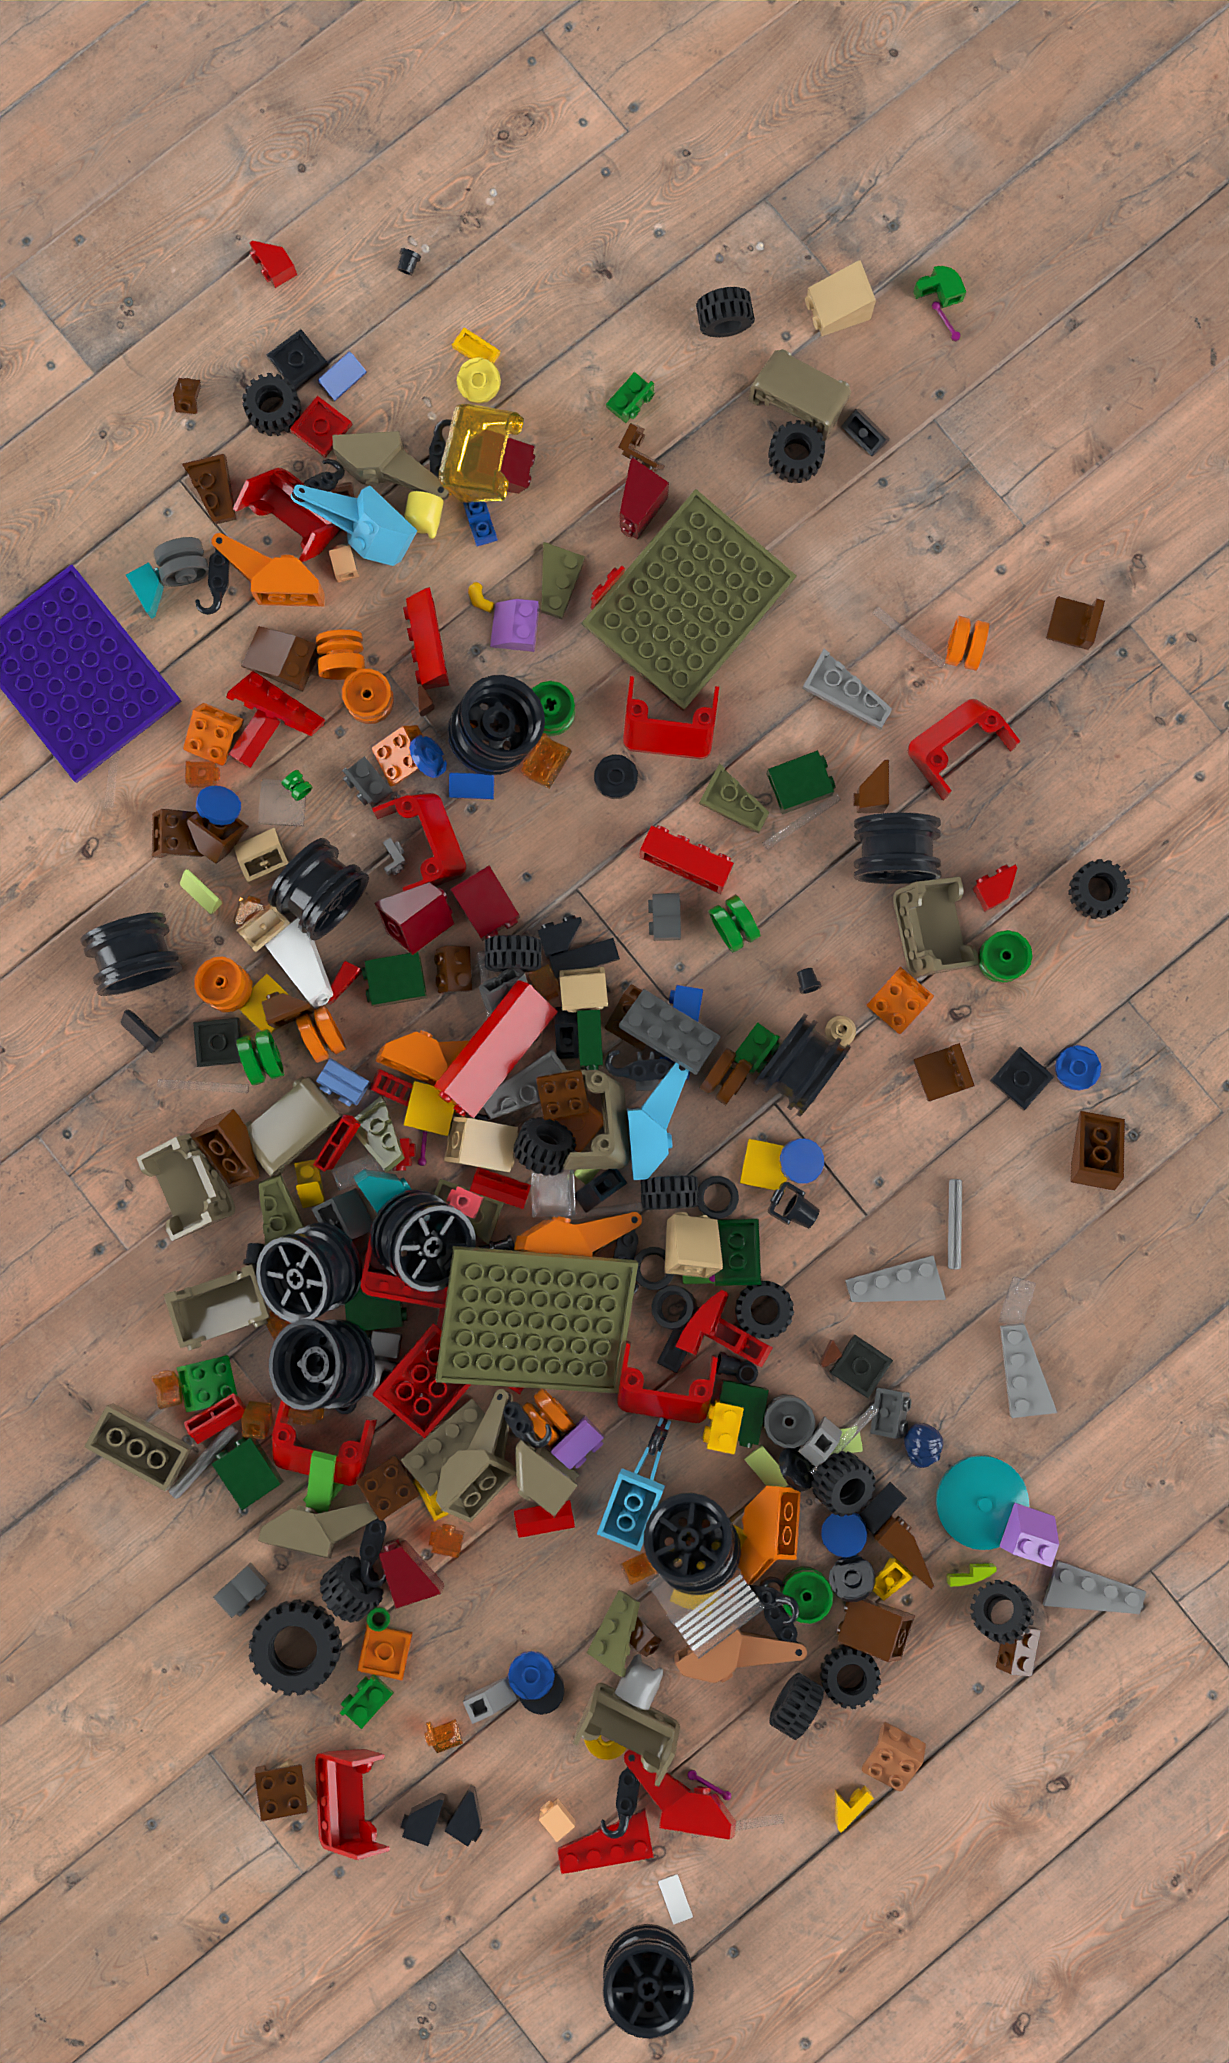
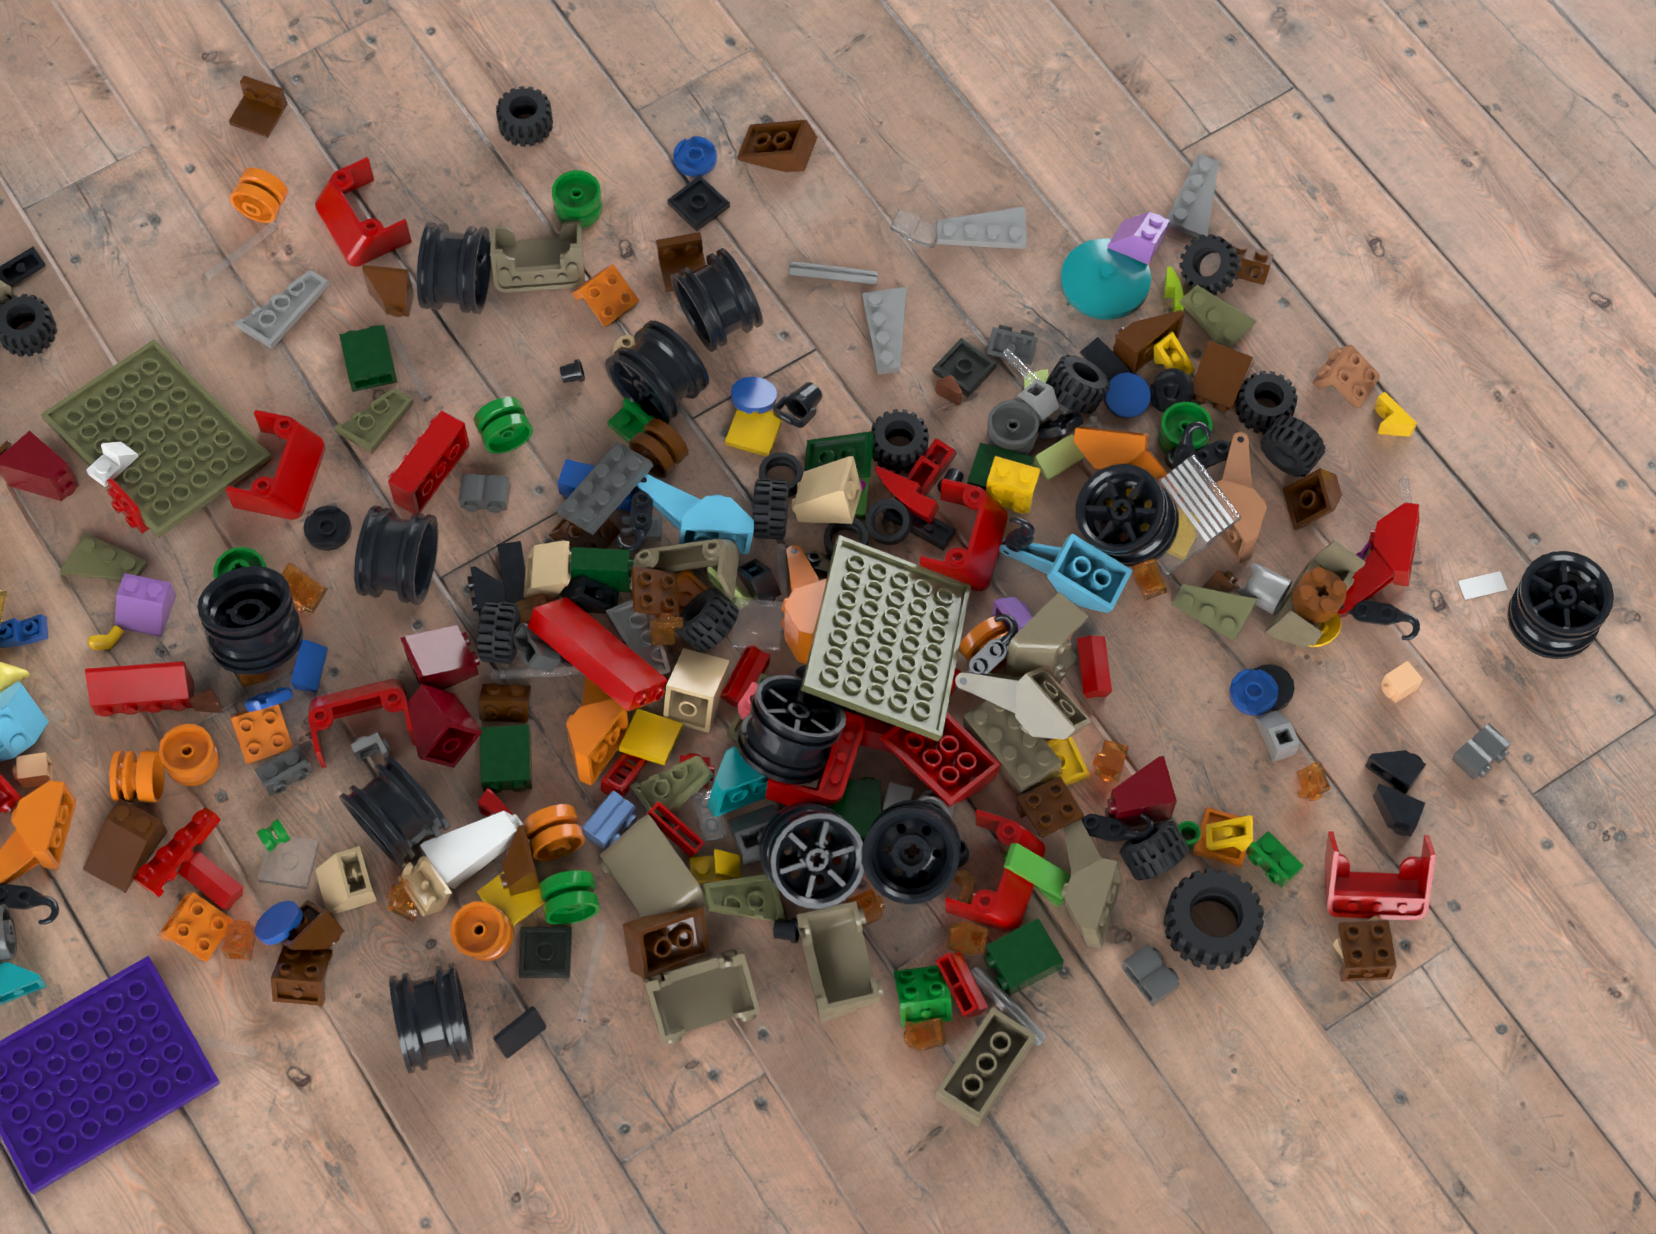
camera: 85 degrees left, 20 degrees down
(200, 892) = (372, 954): yellowish green slope -> none
(377, 1659) = (1230, 833): none -> yellow slope
(422, 1161) = (705, 753): magenta hinge -> none
(491, 1899) = (1481, 752): none -> dark grey brick
(529, 1108) = (663, 629): none -> clear orange bracket
(577, 846) = (396, 554): none -> black wheel
(601, 1851) = (1431, 642): red wing -> none
(629, 1751) = (1318, 595): none -> dark orange brick
(650, 566) = (114, 460): none -> white slope
(746, 1727) = (1312, 497): none -> reddish brown slope
(747, 1364) = (965, 459): black piece -> none
(891, 1112) = (717, 299): none -> black wheel
(923, 1445) = (1045, 318): dark blue hair -> none
(944, 1621) = (1216, 316): none -> olive wing
(995, 889) = (508, 200): red slope -> none

